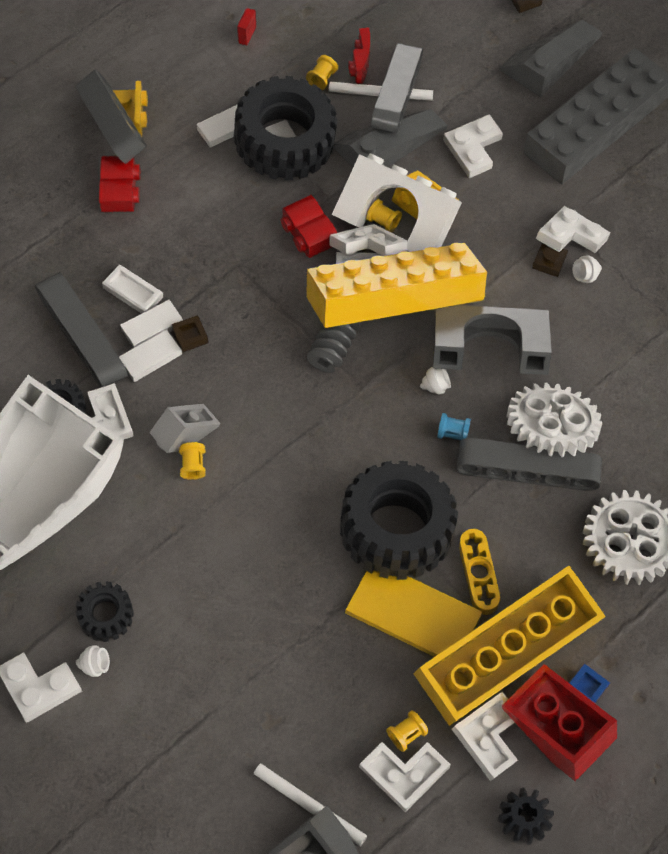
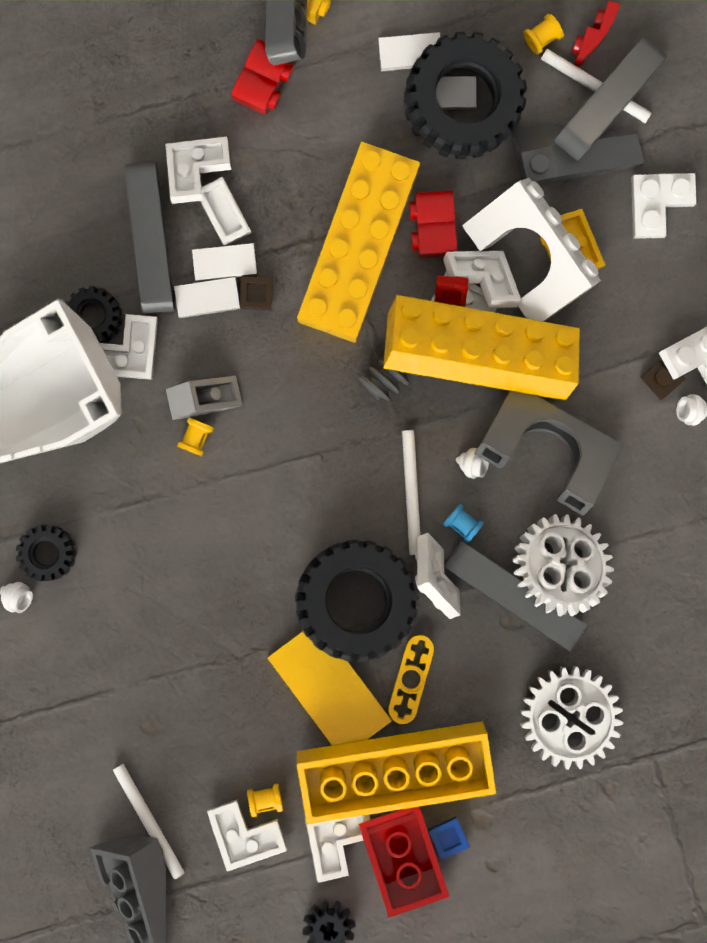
camera: 25 degrees right, 25 degrees up
(88, 263) = (190, 159): none -> white plate
(256, 264) = (358, 242): none -> yellow brick
(347, 252) = (451, 290): none -> red tile
(383, 215) = (518, 248): yellow bush -> none
(396, 424) = (411, 489): none -> white bar
(452, 473) = (431, 577): none -> white plate

